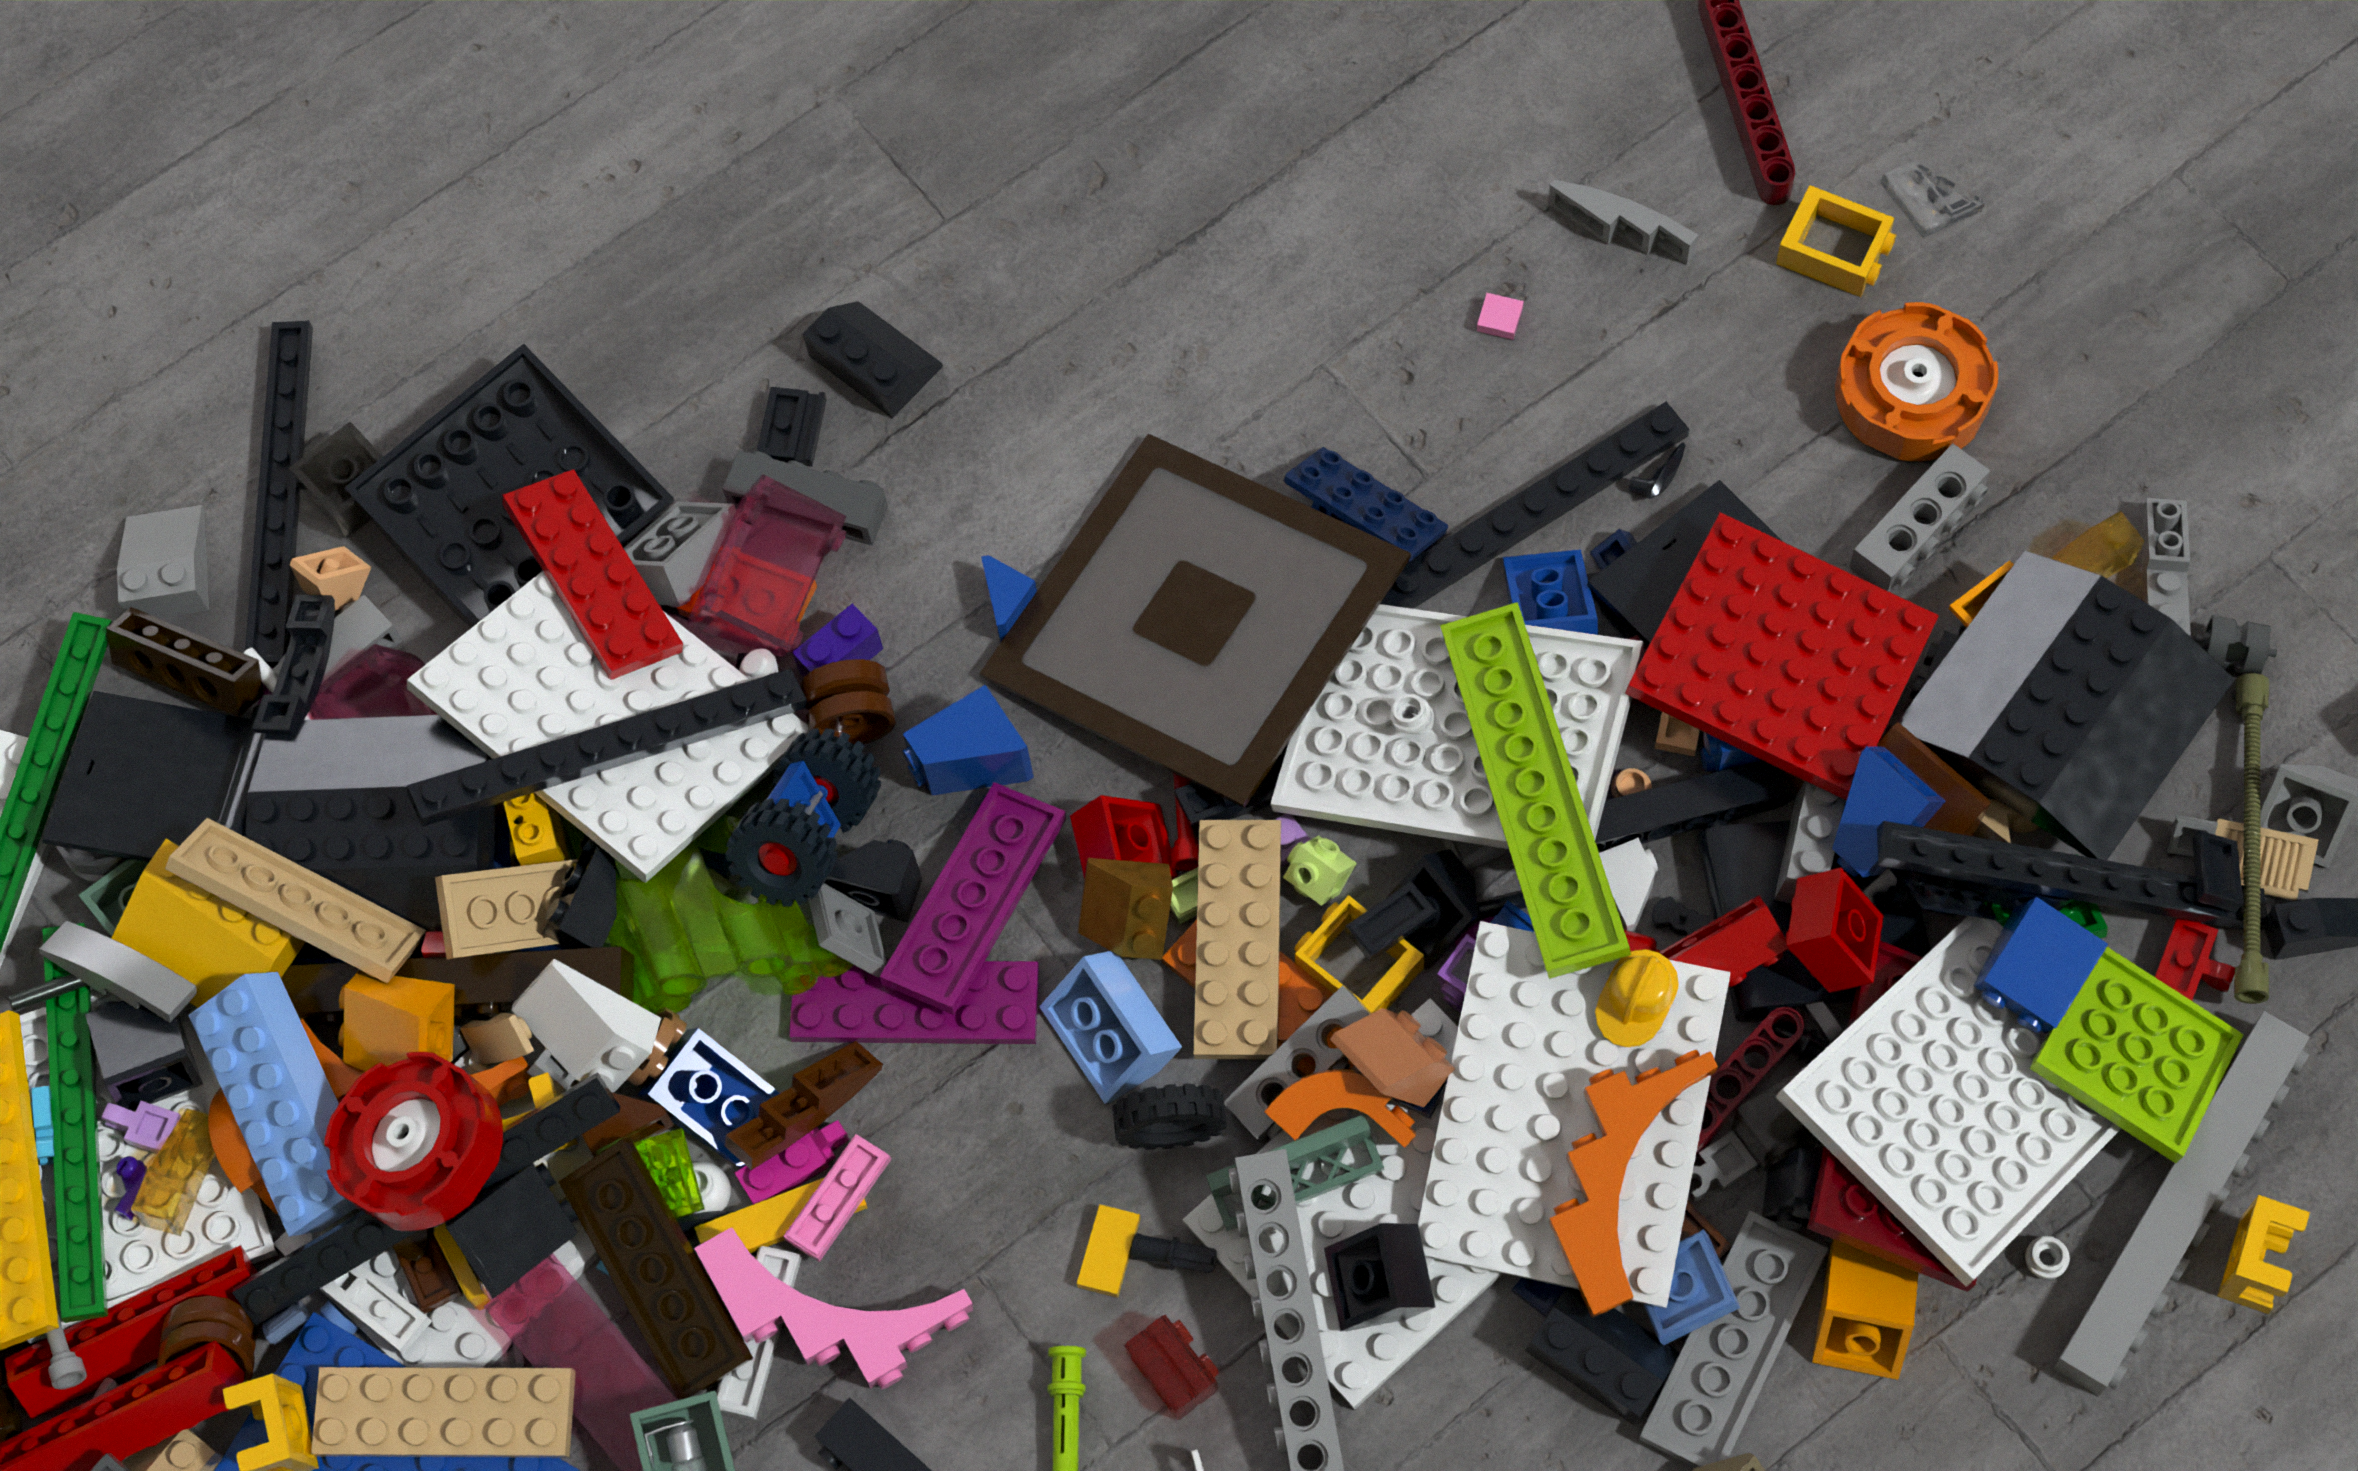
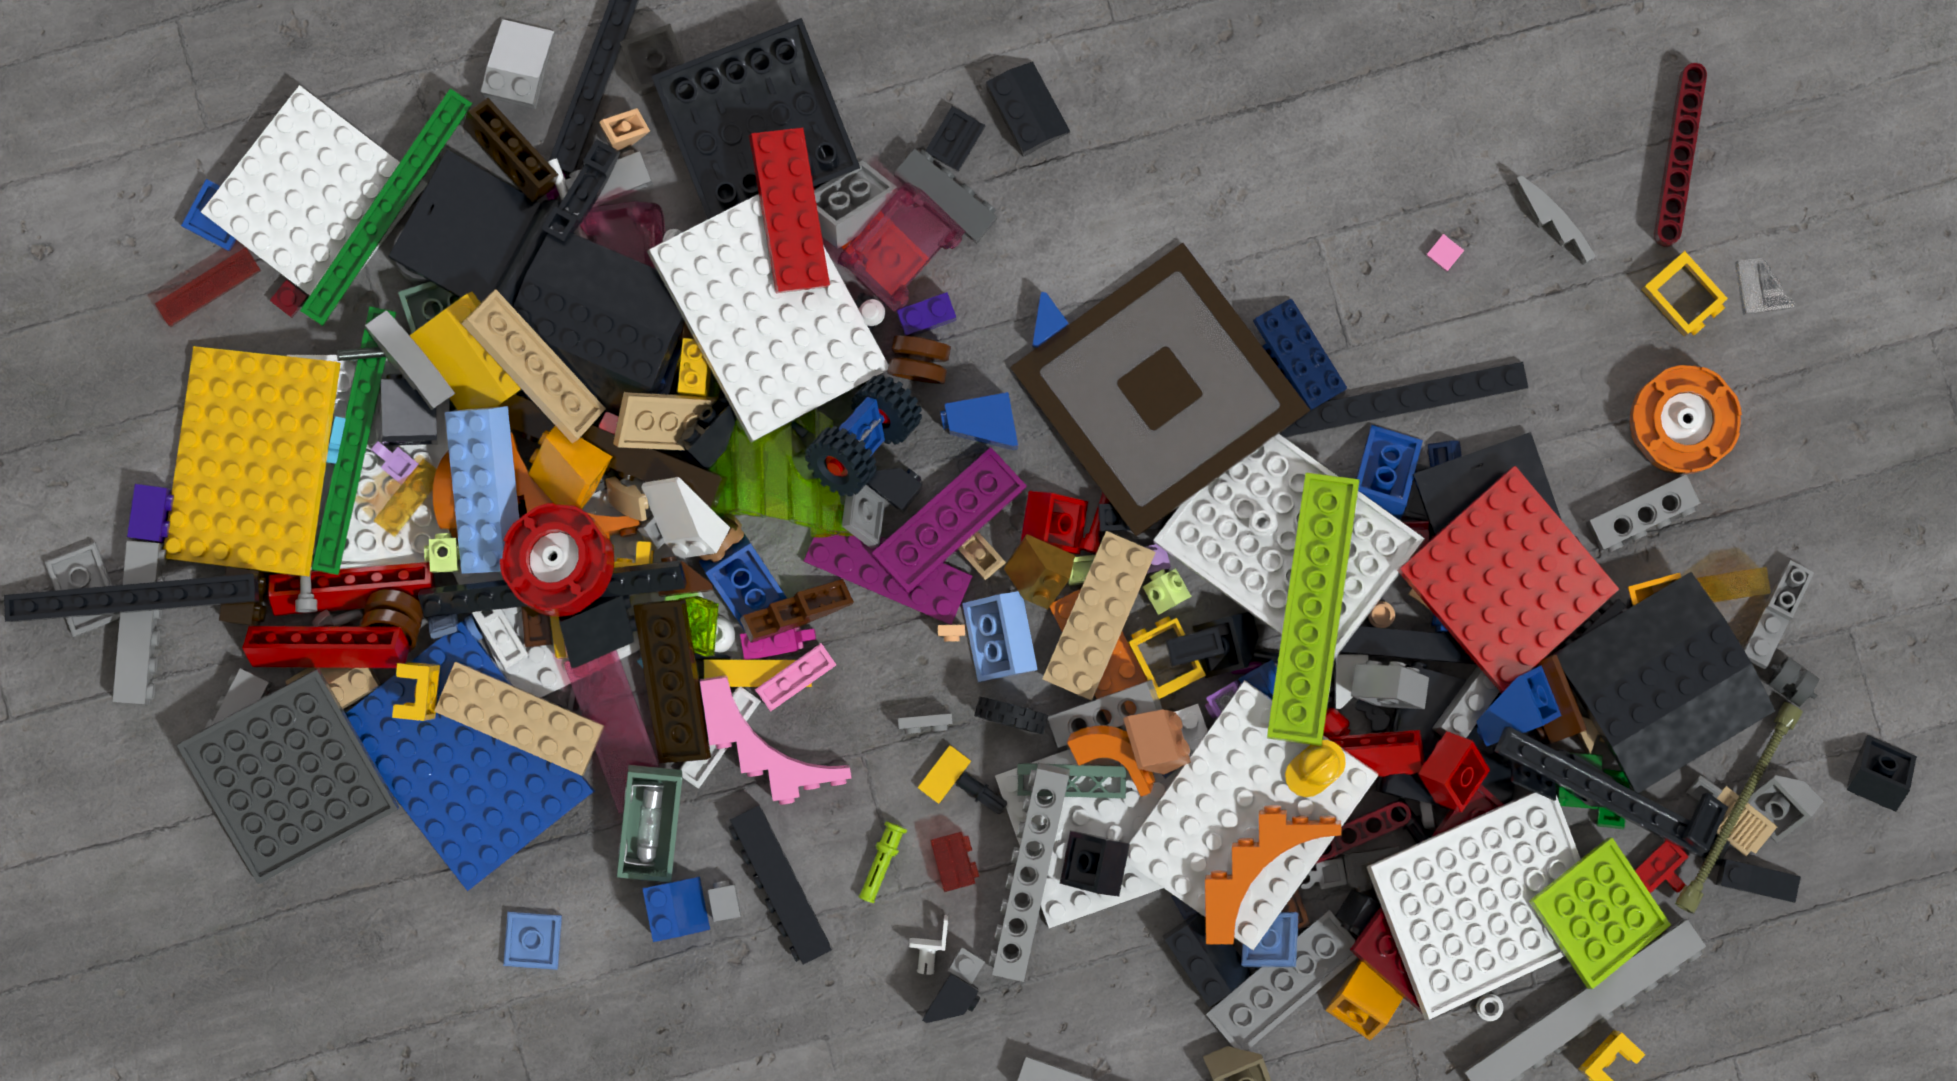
camera: 15 degrees right, 20 degrees up
(132, 1175) = (379, 498): dark purple arm -> none
(254, 1224) = (450, 562): none -> yellowish green brick
(605, 747) = (759, 344): black plate -> none
(1038, 1046) = (951, 632): none -> light nougat plate
(1038, 1191) = (936, 722): none -> light grey plate
(1040, 926) = (981, 556): none -> tan slope
(1662, 477) = (1496, 413): black bar -> none
(1688, 858) = (1390, 685): none -> light grey brick
(2038, 965) = (1563, 842): blue slope -> none

